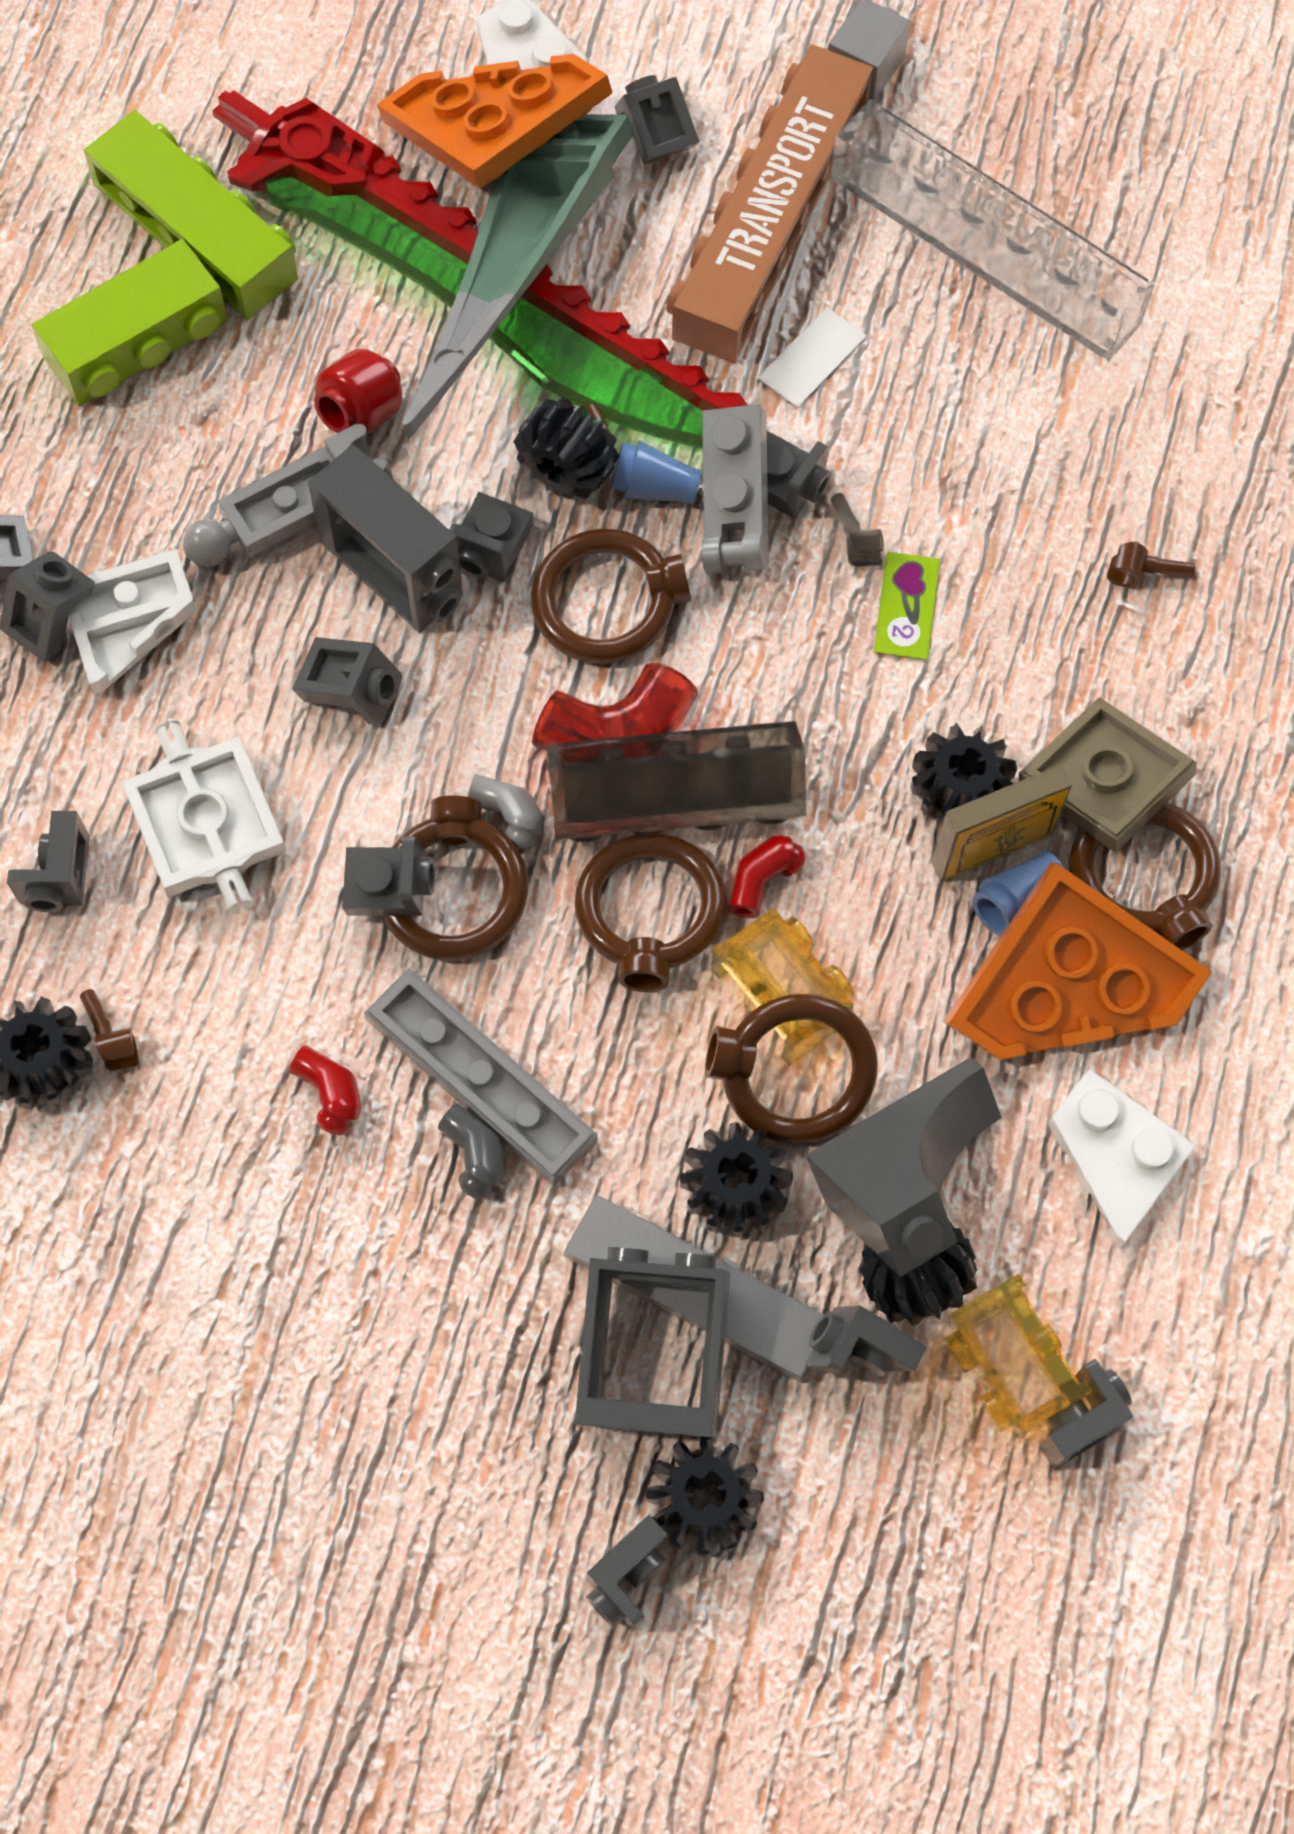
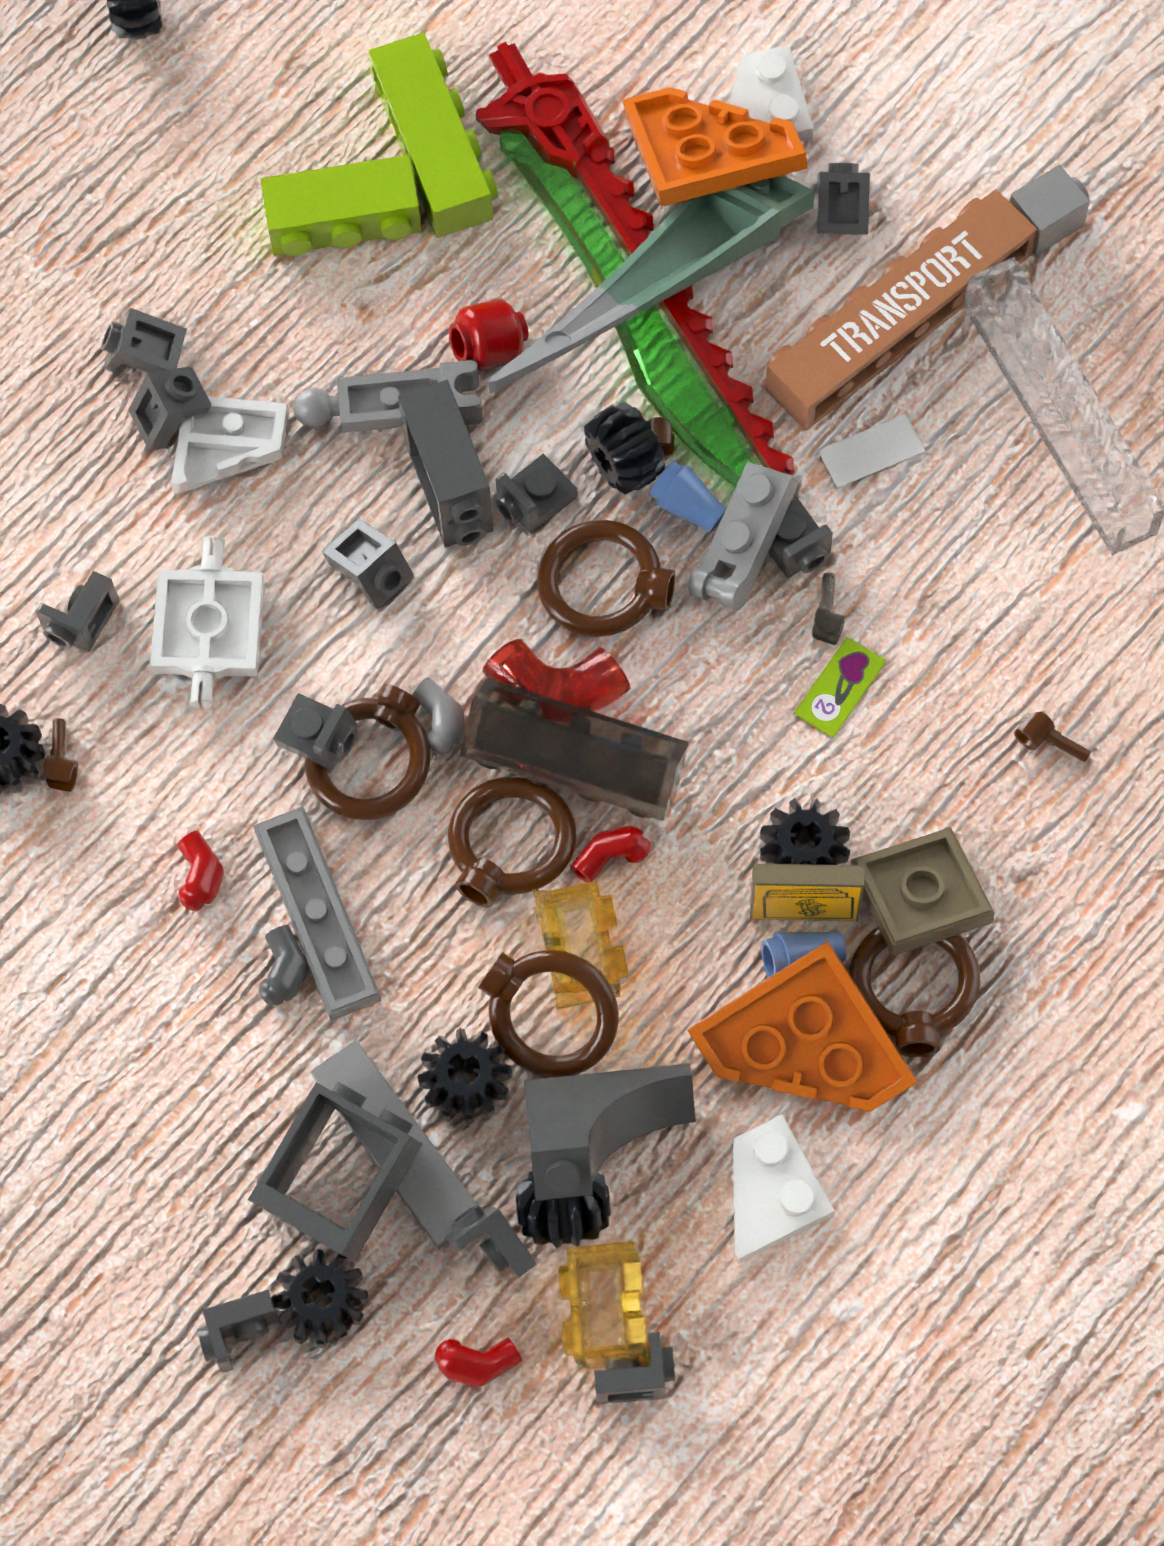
camera: 30 degrees right, 0 degrees up
(909, 1491) = (473, 1366): none -> red arm

